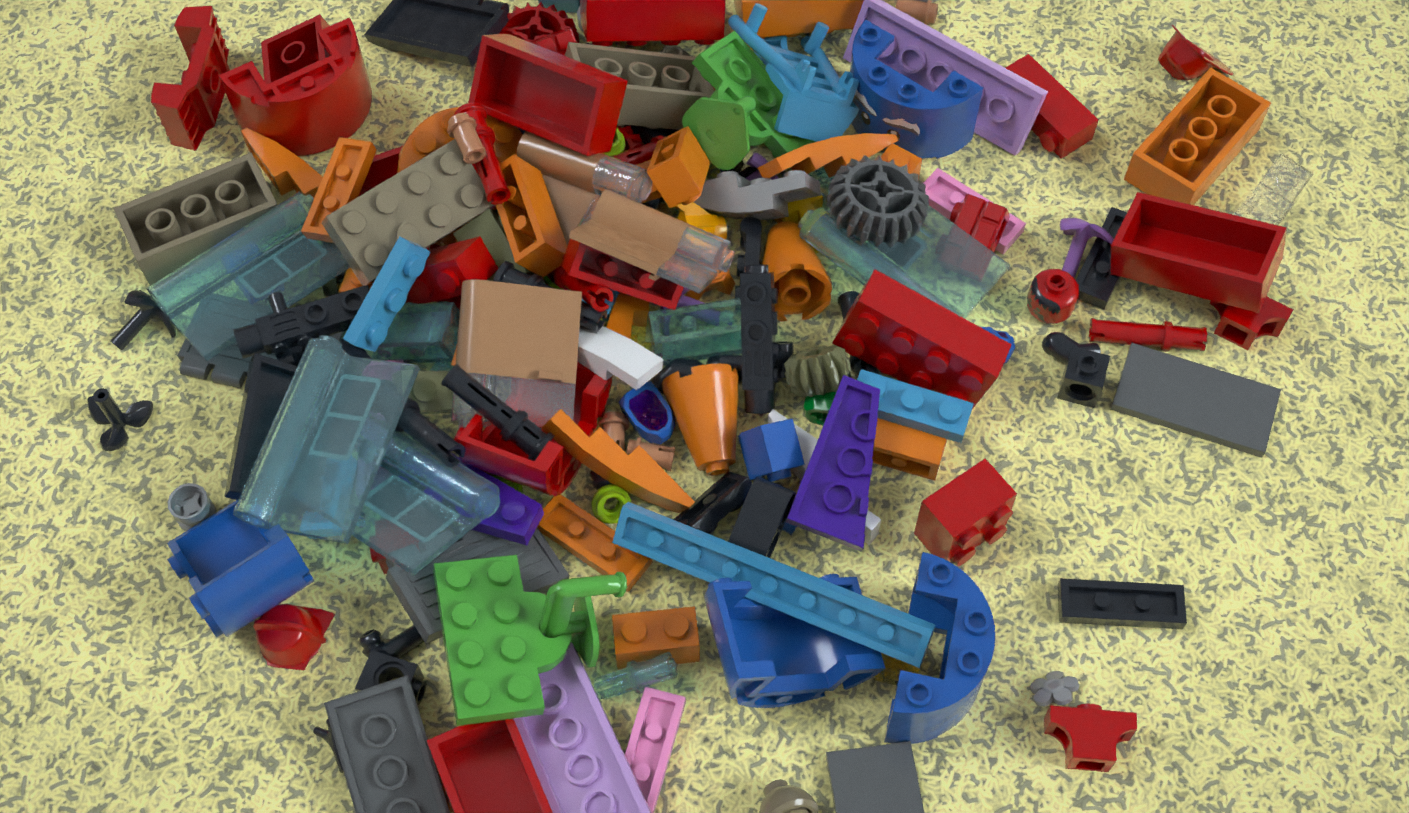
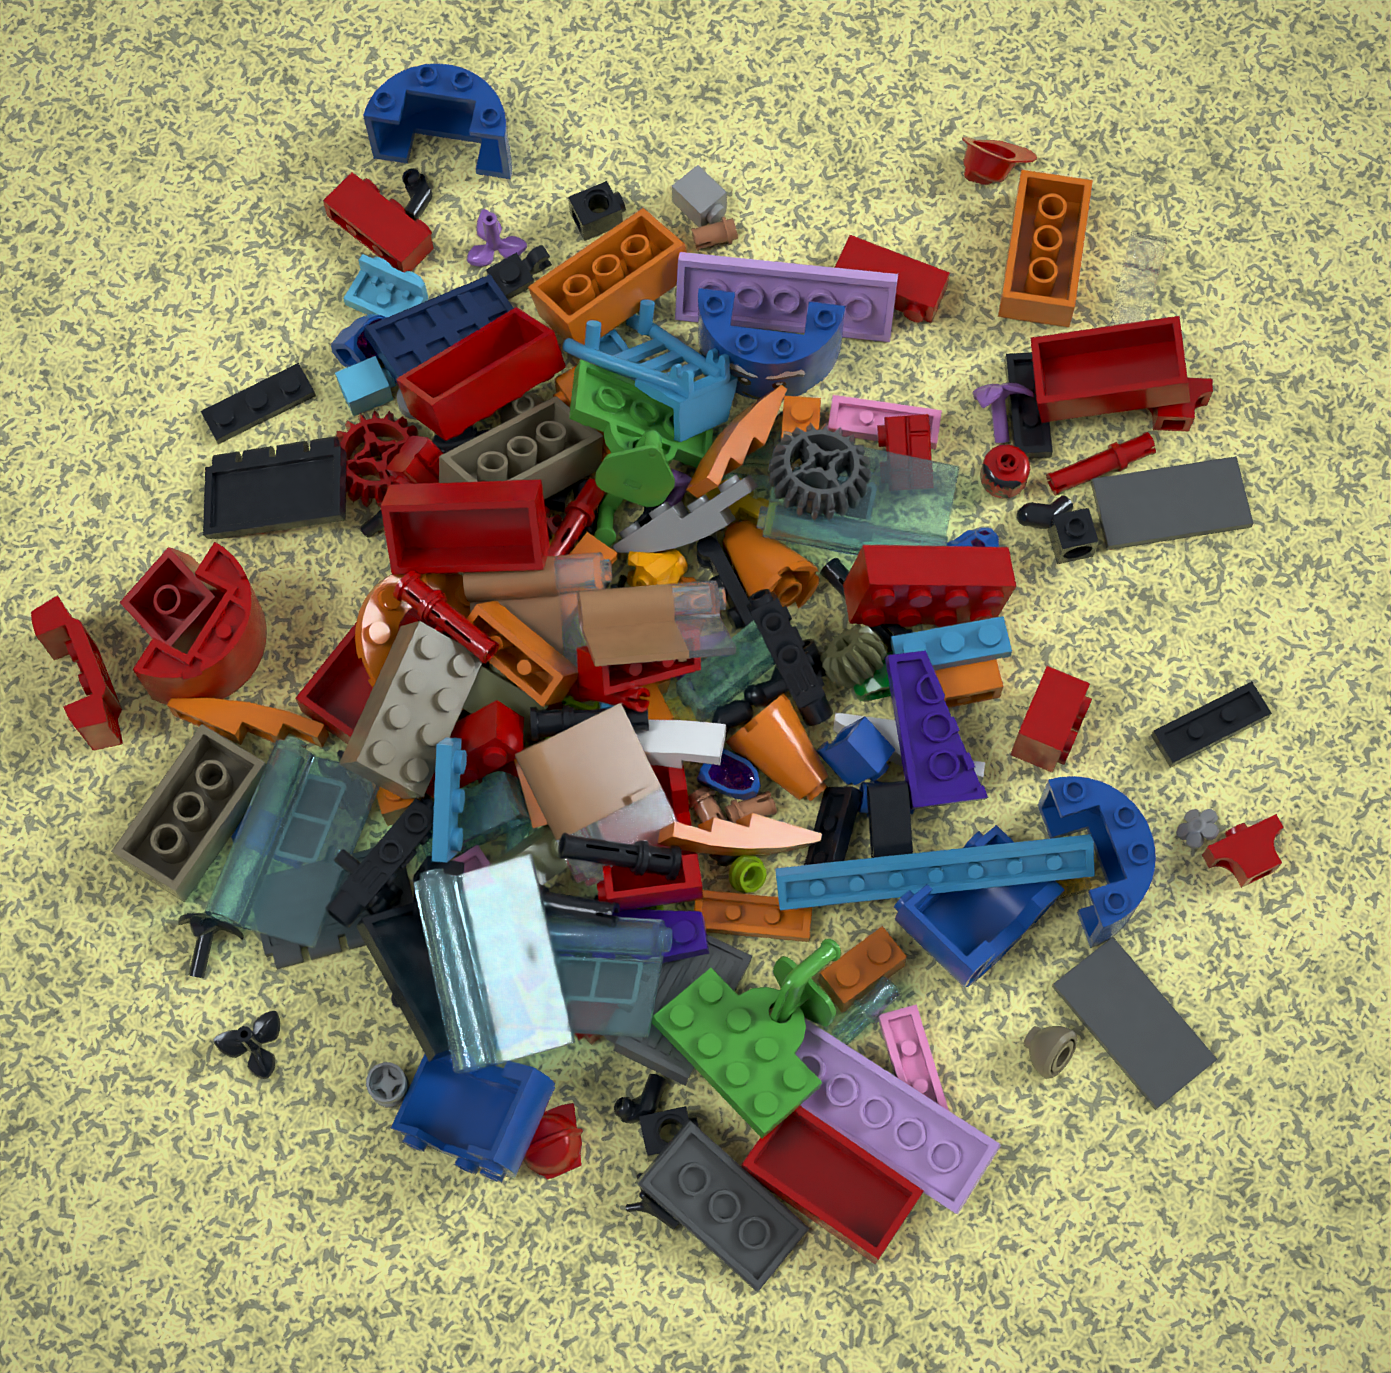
camera: 30 degrees left, 10 degrees up
(339, 184) = (319, 717): orange plate -> none
(463, 130) = (430, 615): nougat pin -> none
(679, 168) = (621, 530): orange brick -> none

